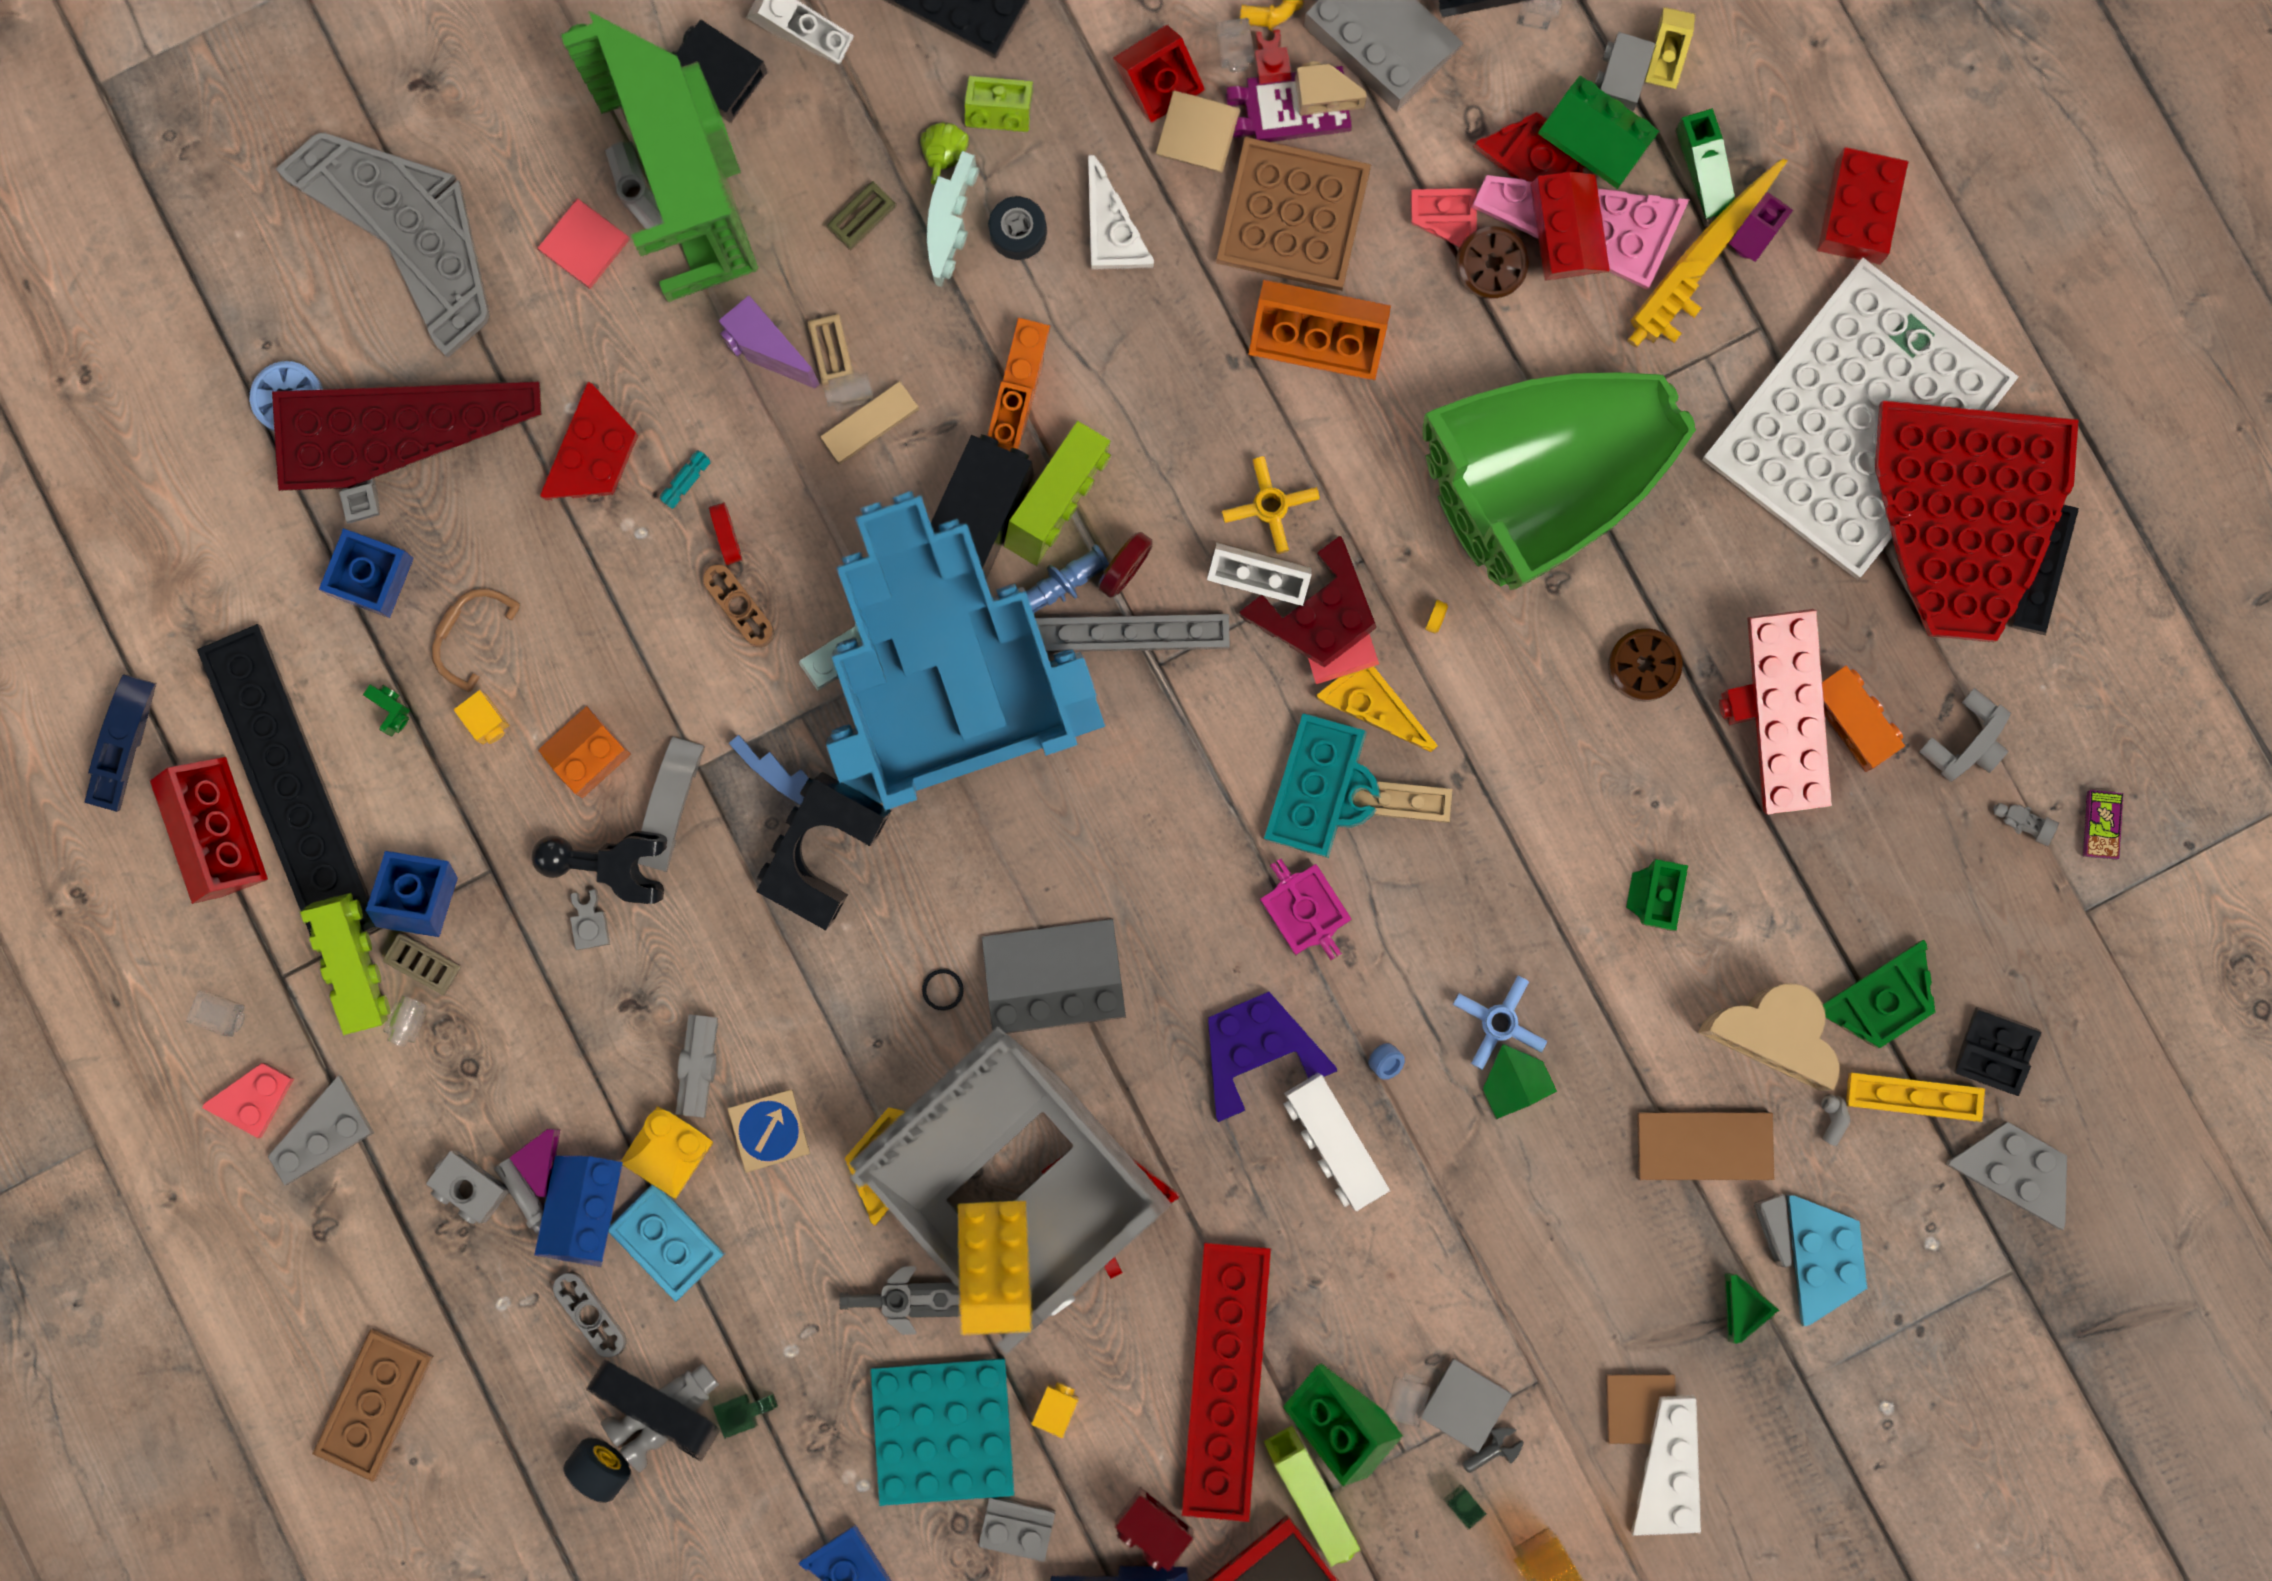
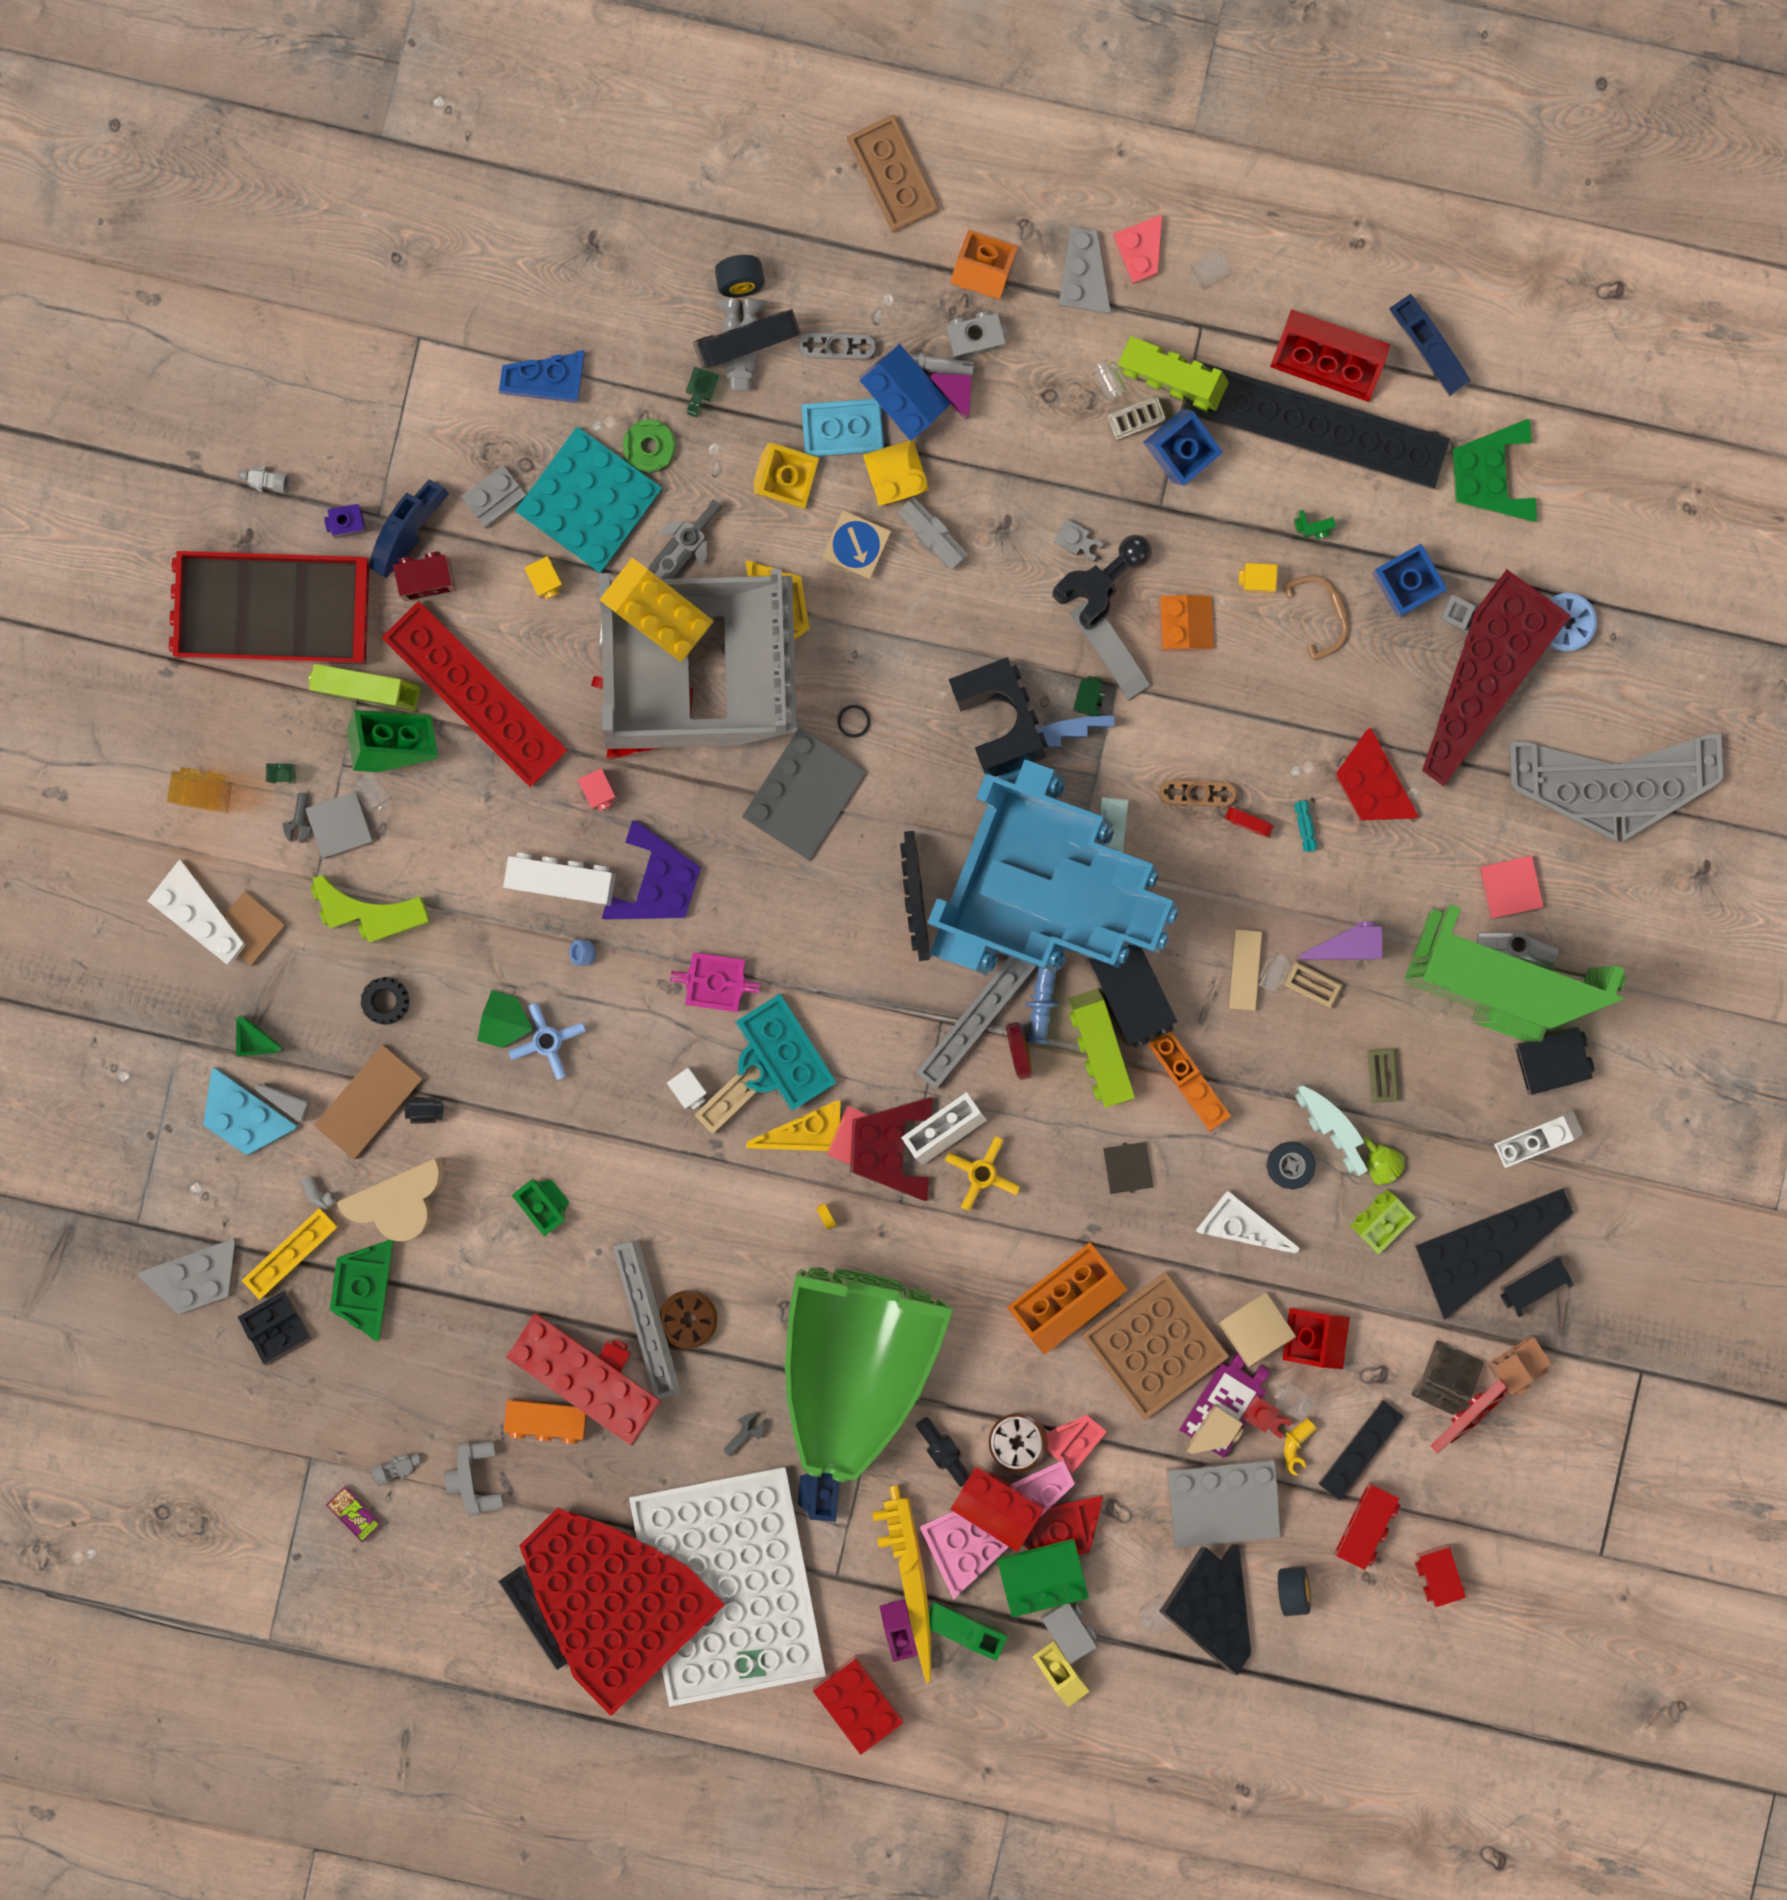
camera: 120 degrees right, 5 degrees up
(208, 592) = (1481, 473): none -> green wing
(390, 1238) = (983, 264): none -> orange slope
(731, 783) = (1089, 696): none -> dark green brick
(758, 1258) = (785, 475): none -> yellow slope
(859, 1410) = (649, 461): none -> bright green tile
(1066, 778) = (914, 903): none -> black wing
(1148, 377) = (1128, 1167): none -> clear smoke piece
(1217, 1179) = (597, 790): none -> coral brick
(1429, 849) = (687, 1089): none -> white brick
(1526, 1289) = (376, 920): none -> lime arch
(1560, 324) = (943, 1451): none -> black axle
(1617, 1217) = (370, 1009): none -> black tyre
(1667, 1085) = (424, 1110): none -> black brick
(1680, 702) = (646, 1319): none -> light grey plate
(1703, 522) = (744, 1433): none -> dark grey bar
(1705, 401) = (819, 1496): none -> dark blue slope

